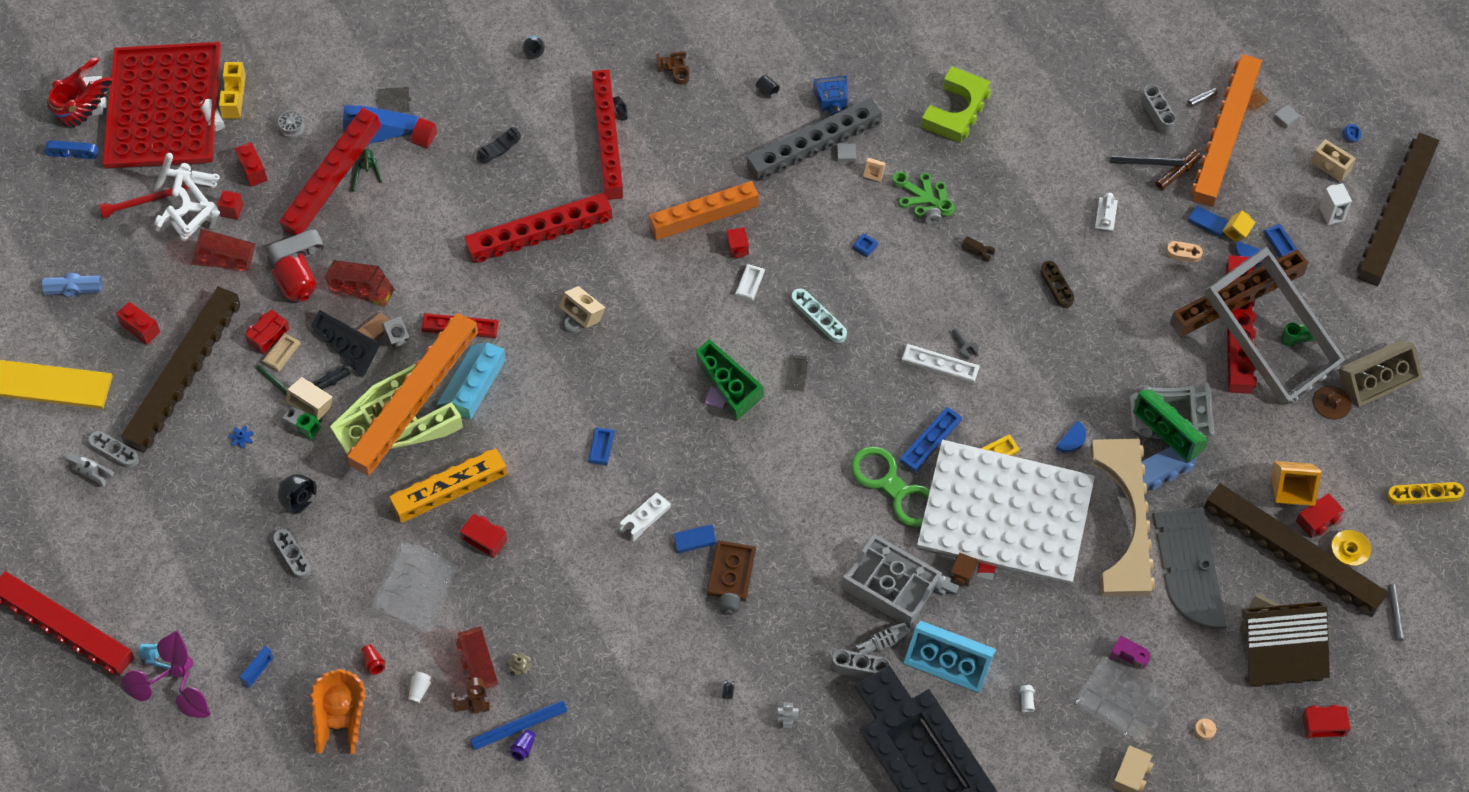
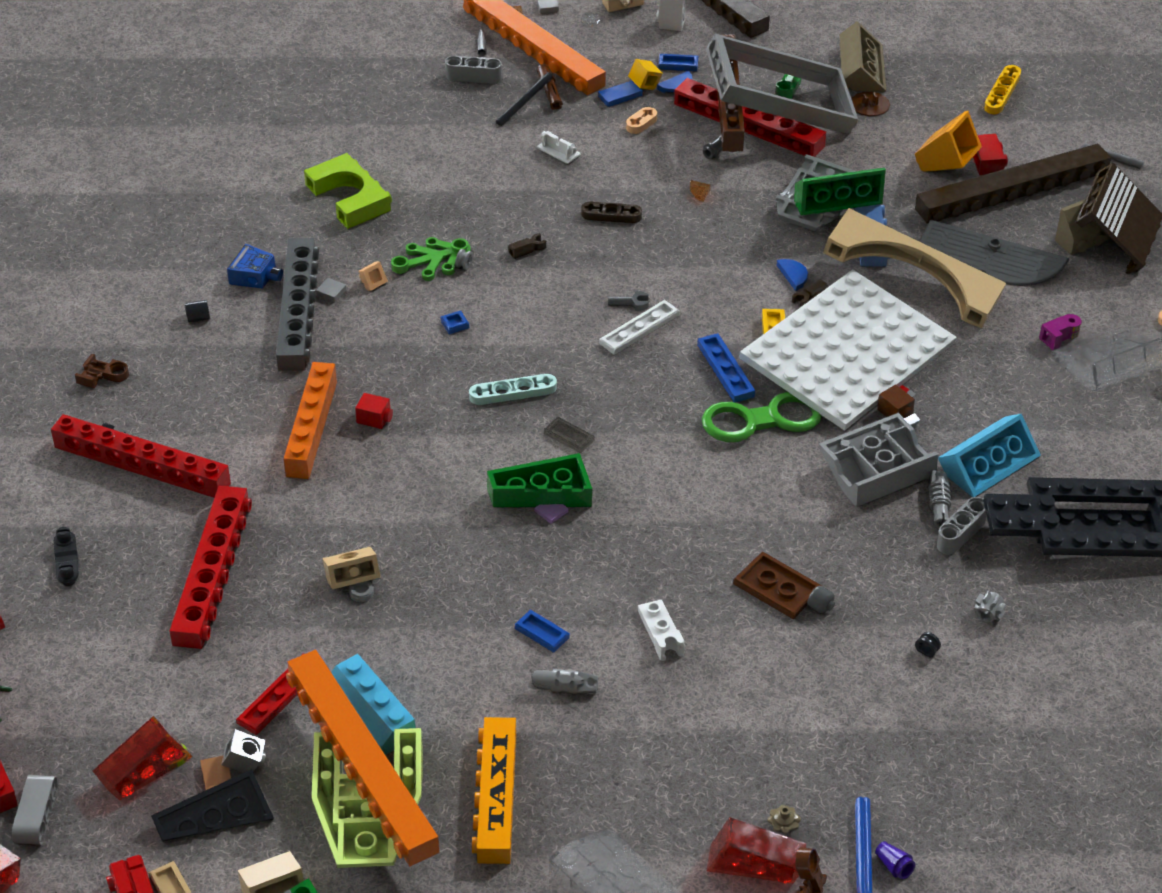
camera: 60 degrees left, 15 degrees down
(294, 278) = (86, 822): red cylinder -> none
(332, 377) = (253, 849): black pin -> none
(483, 535) = (589, 782): red brick -> none
(562, 480) = (565, 681): none -> light grey hinge
(695, 538) = (719, 596): blue tile -> none
(750, 282) = (428, 425): white tile -> none
(1027, 698) = (1069, 421): white pin -> none
(1054, 459) = (809, 292): none -> dark brown bar
(1127, 330) = (699, 190): none -> clear orange tile
(1351, 540) = (1032, 149): yellow dish -> none

